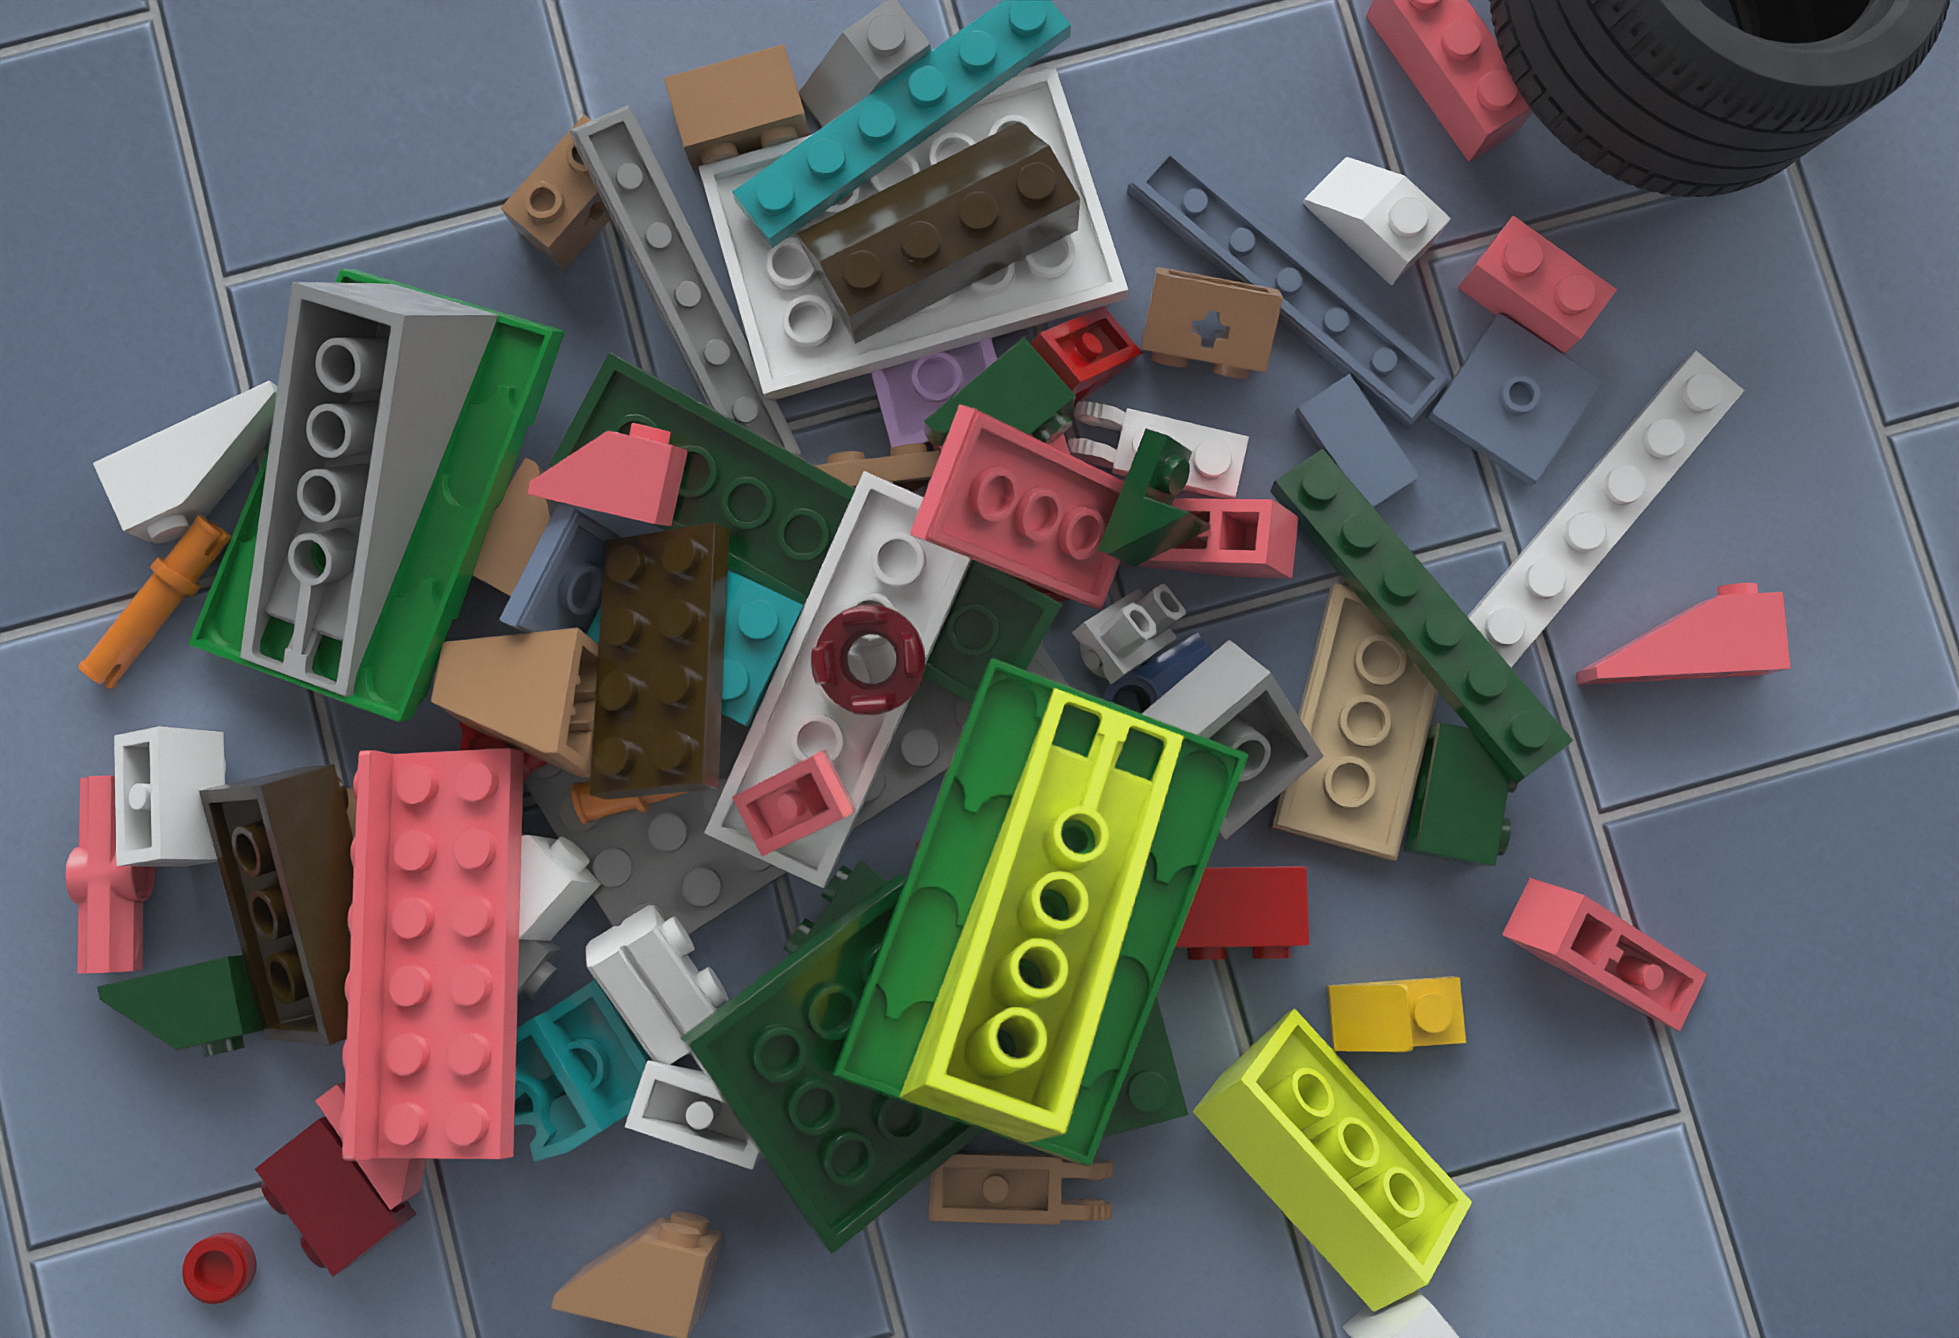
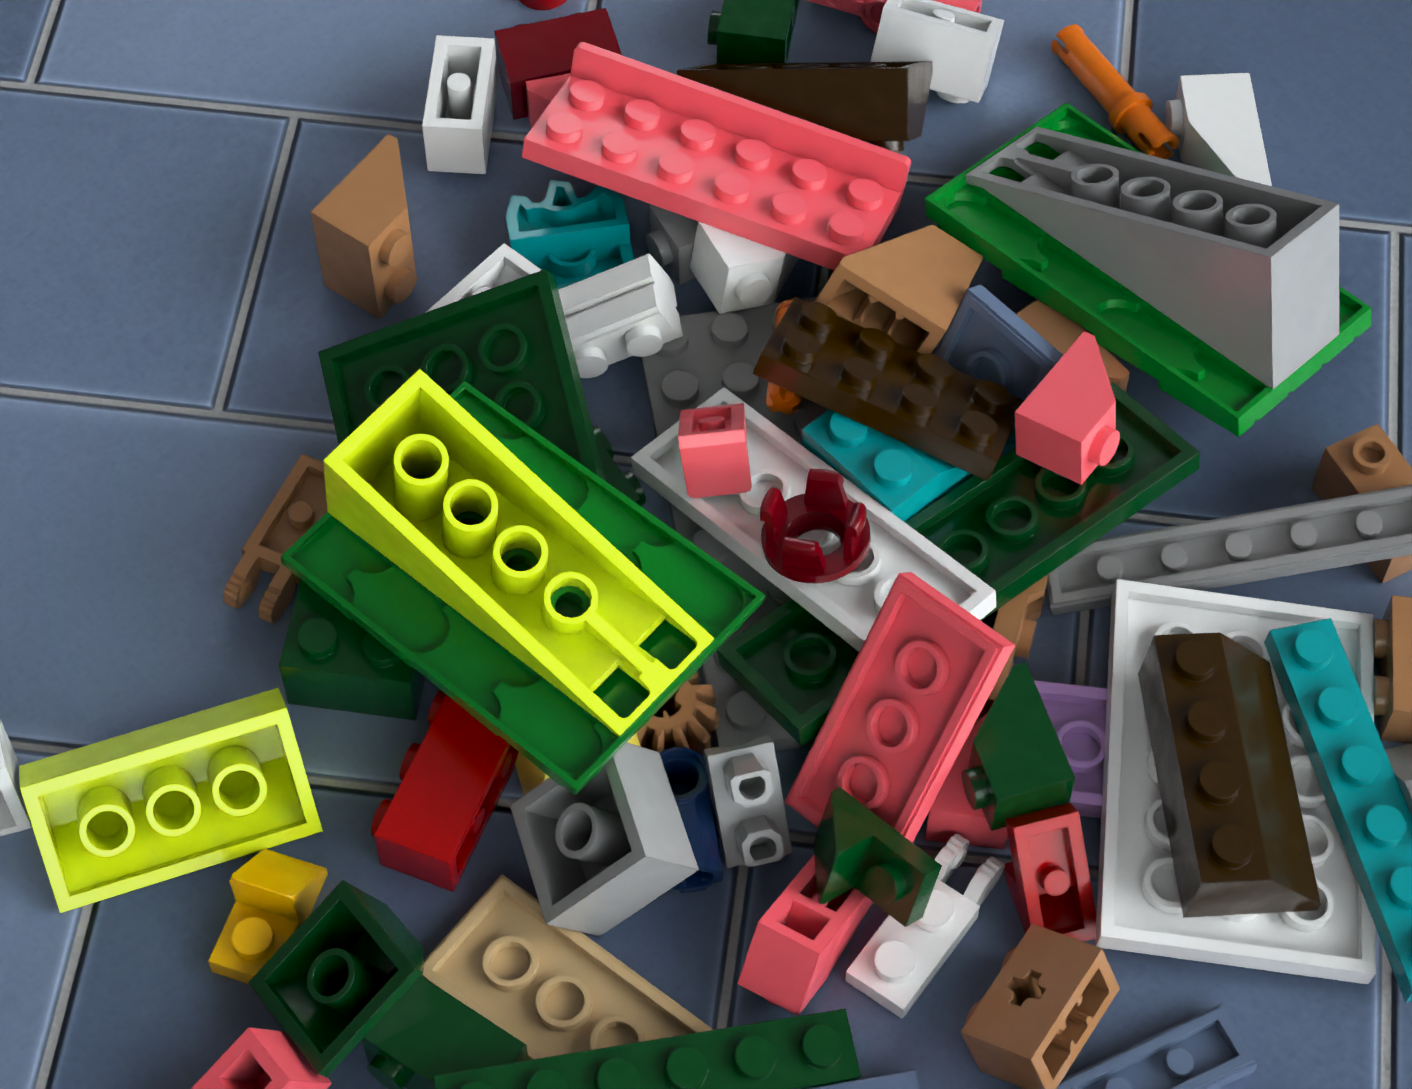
camera: 115 degrees right, 25 degrees down
(440, 1269) = (460, 104): none -> white brick
(1447, 905) = (339, 975): none -> dark green slope

